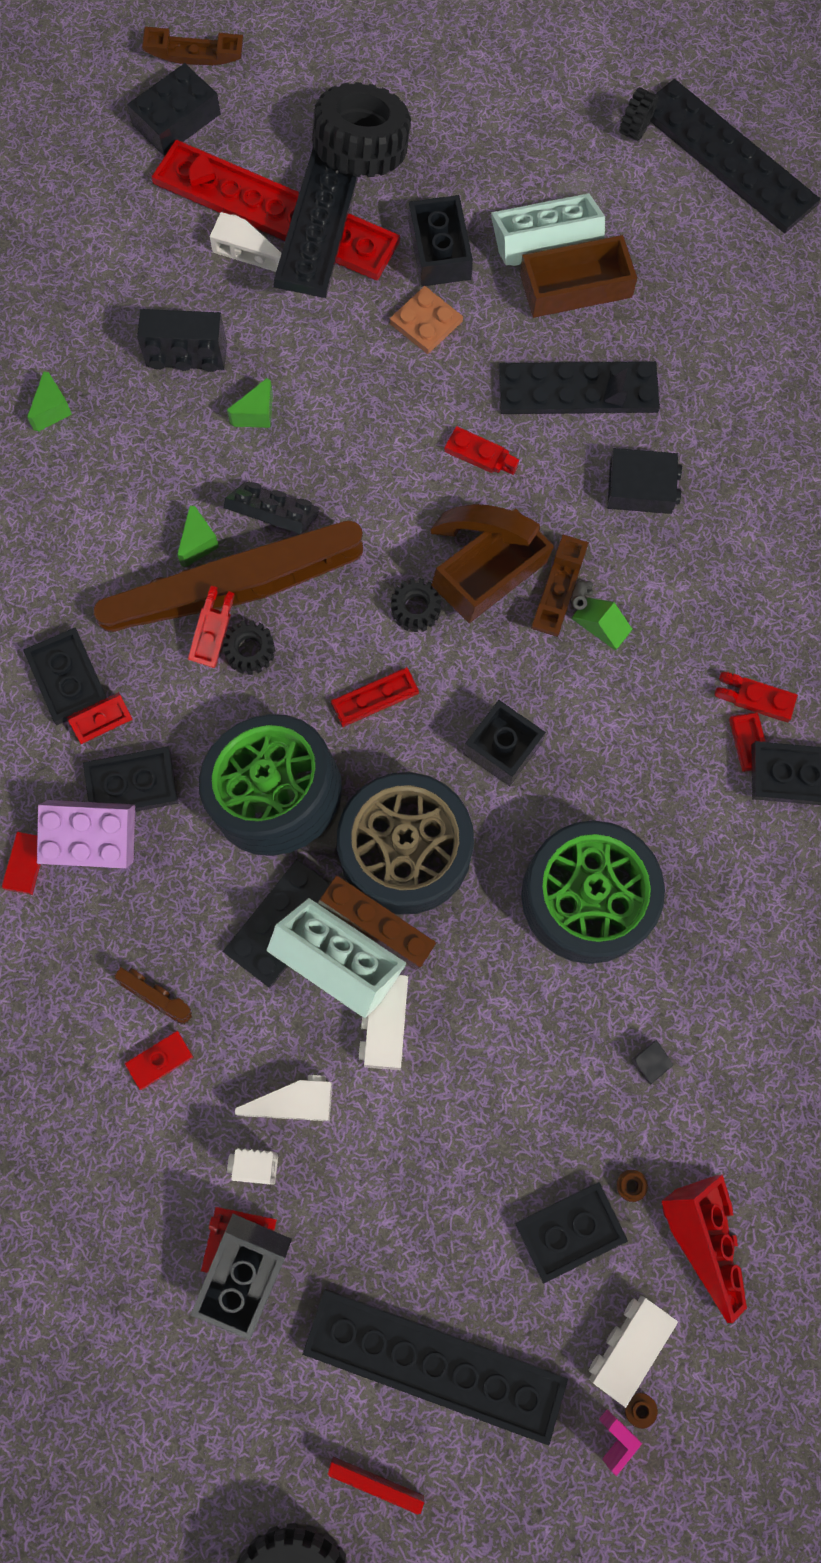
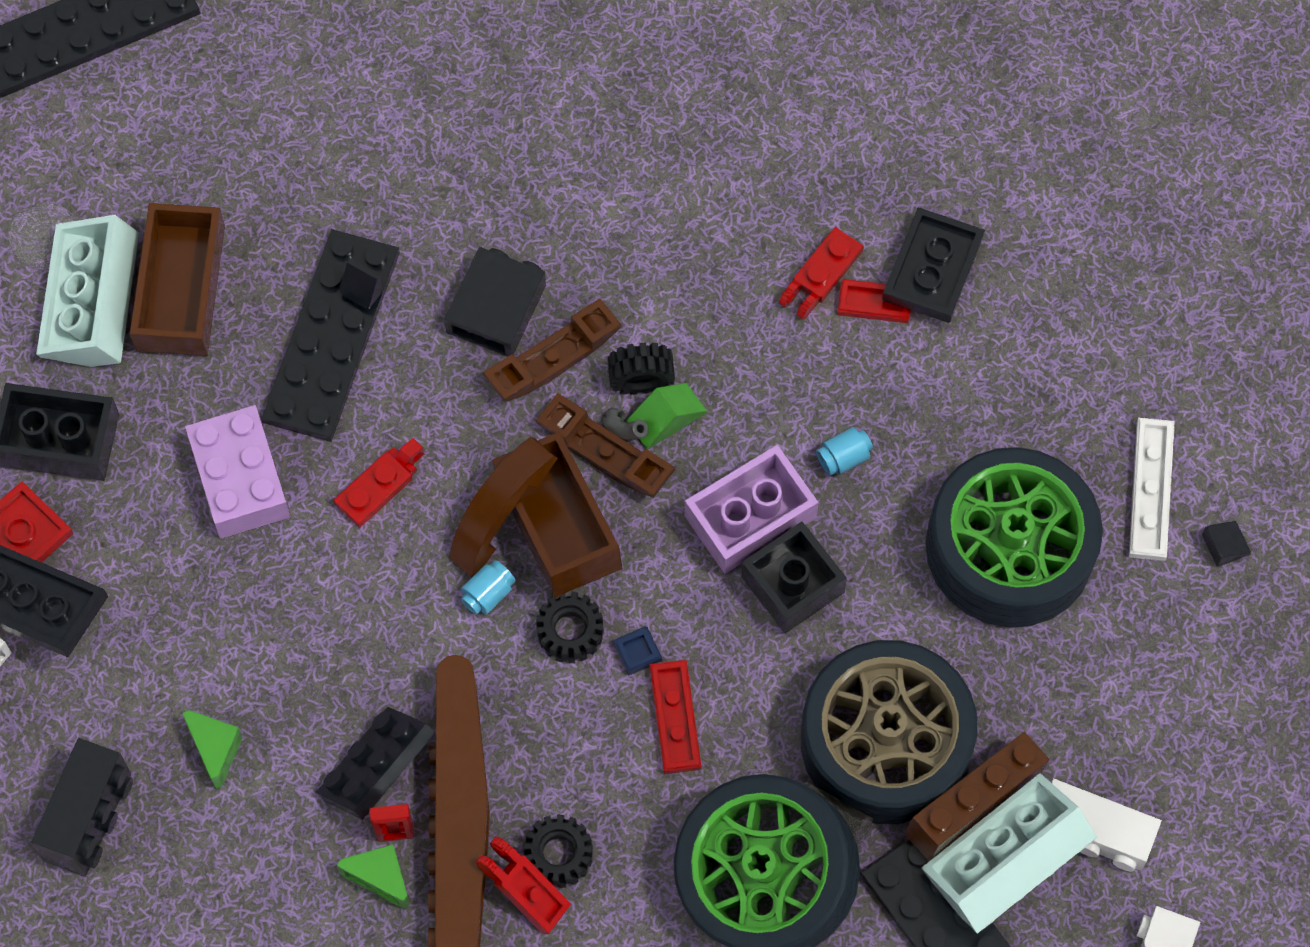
camera: 70 degrees left, 5 degrees down
(231, 529) = (392, 823): none -> red plate
(415, 656) = (637, 650): none -> dark blue tile
(425, 542) = (487, 588): none -> medium azure brick
(426, 320) = (158, 489): nougat plate -> none
(453, 358) = (237, 471): none -> lavender brick
(547, 696) = (750, 508): none -> lavender brick
(616, 532) = (555, 354): none -> reddish brown slope
(618, 752) = (844, 451): none -> medium azure brick
(627, 589) = (640, 368): none -> black tyre
(676, 991) = (1151, 489): none -> white tile

